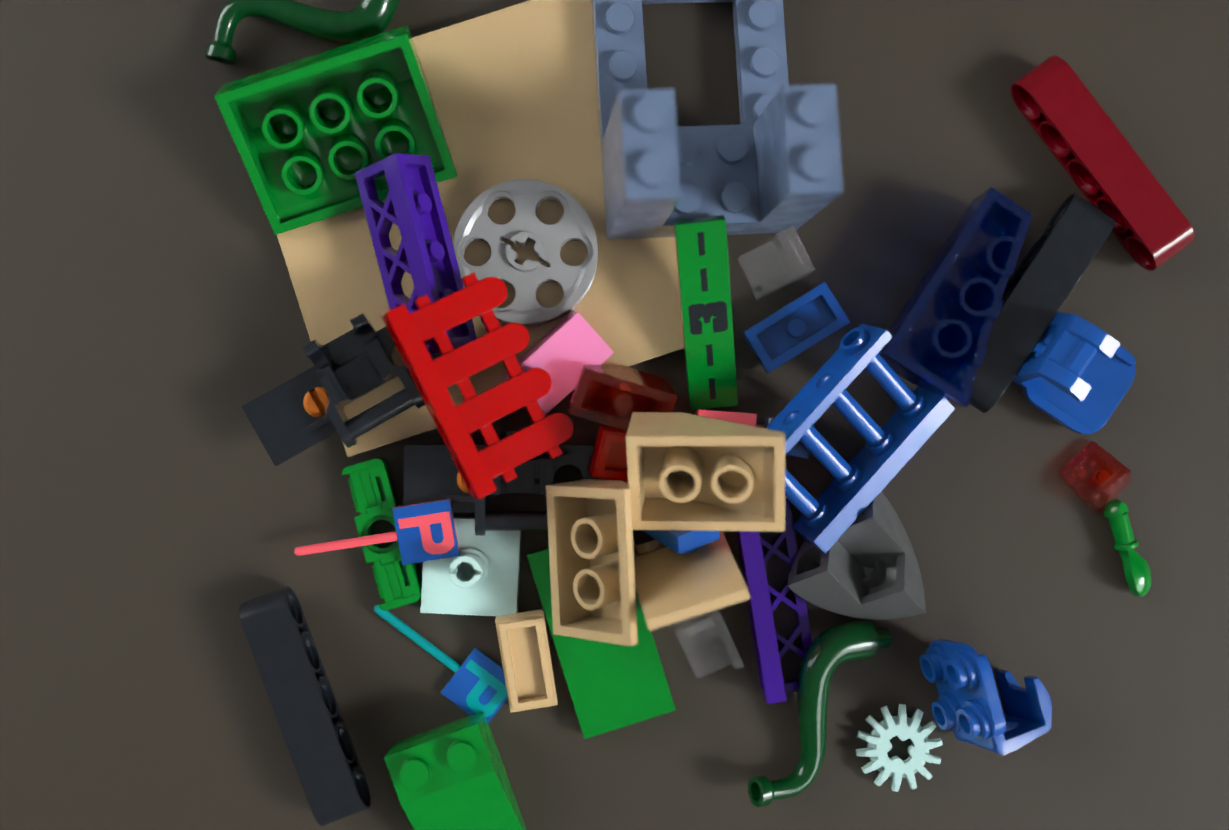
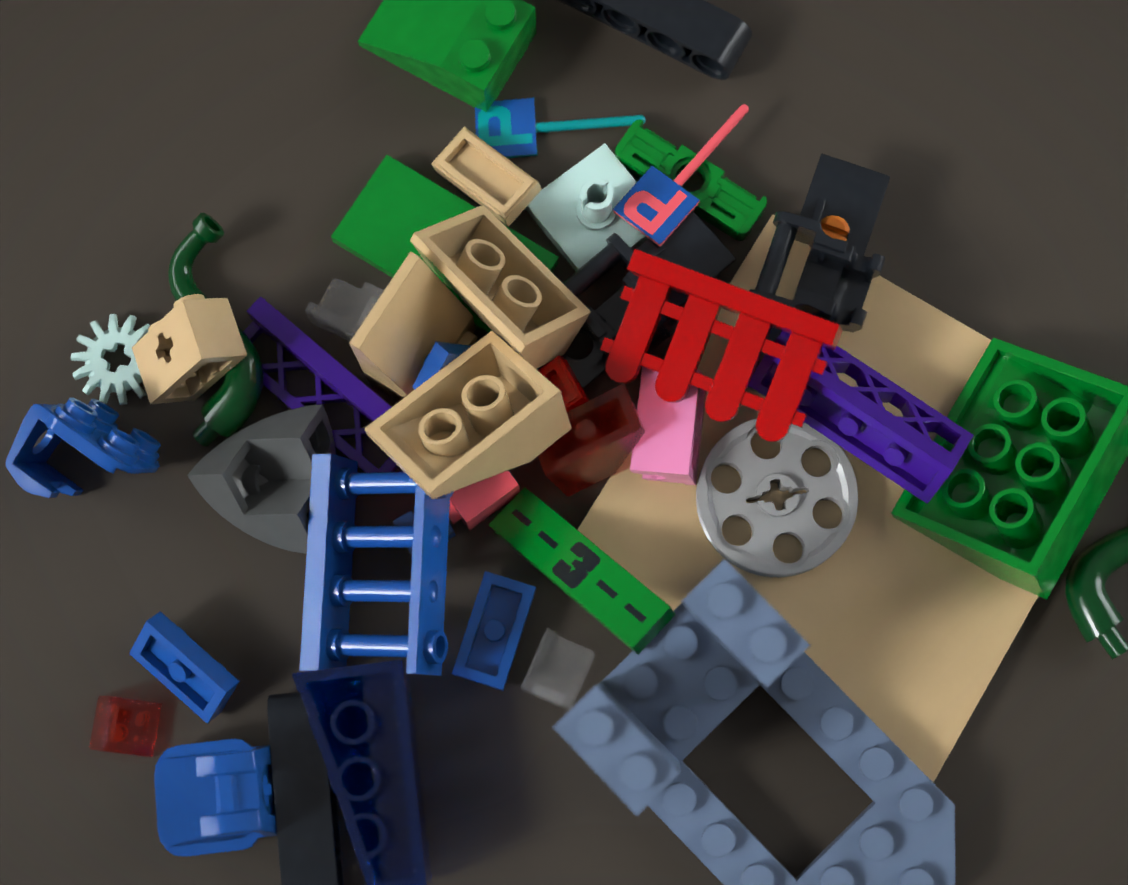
camera: 140 degrees right, 10 degrees down
(850, 707) = (189, 349): none -> tan brick
(1027, 481) = (183, 667): none -> blue plate
(1135, 567) = (28, 675): green piece -> none

